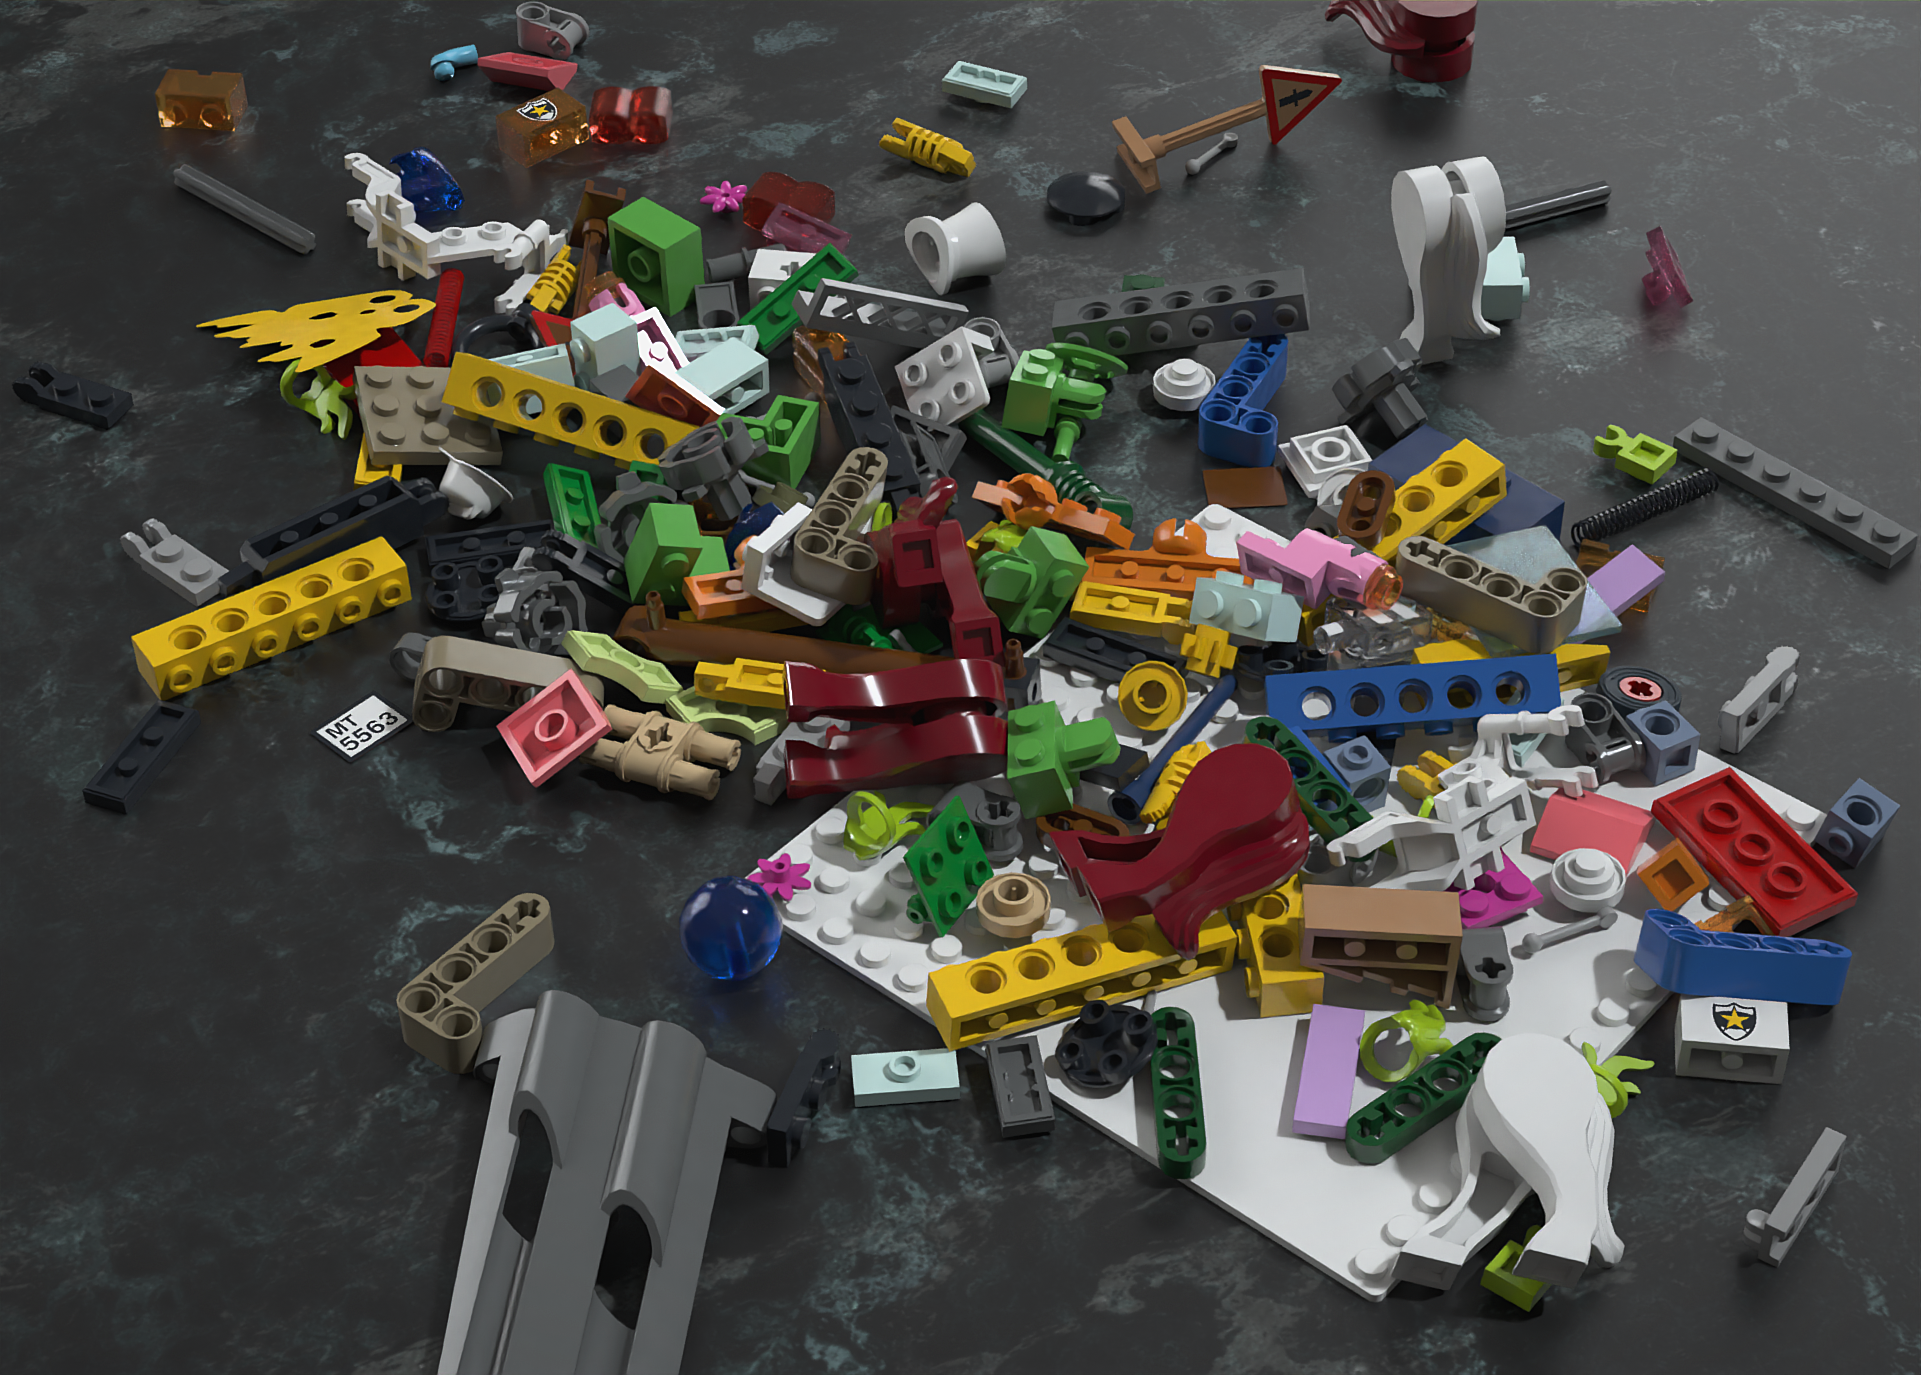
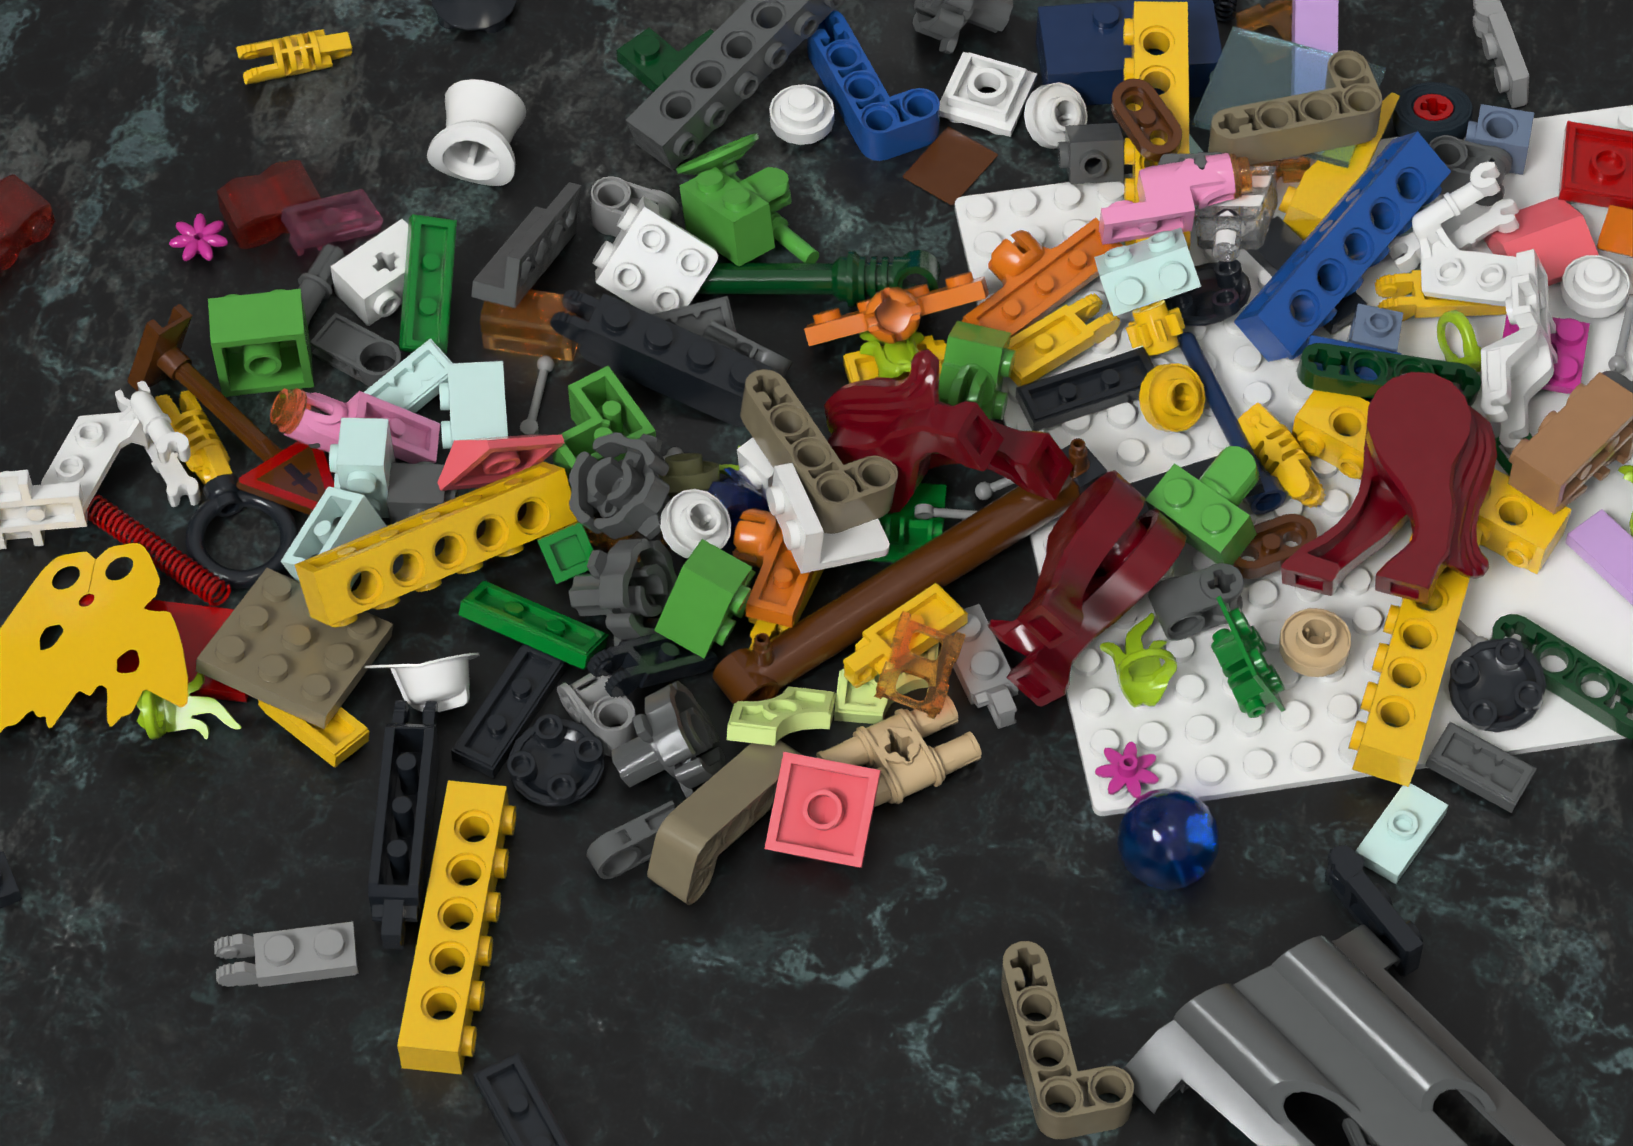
camera: 50 degrees left, 15 degrees up
(362, 726) = (643, 944): sticker -> none
(722, 511) = (694, 517): none -> white plate
(727, 685) = (933, 671): none -> clear orange piece

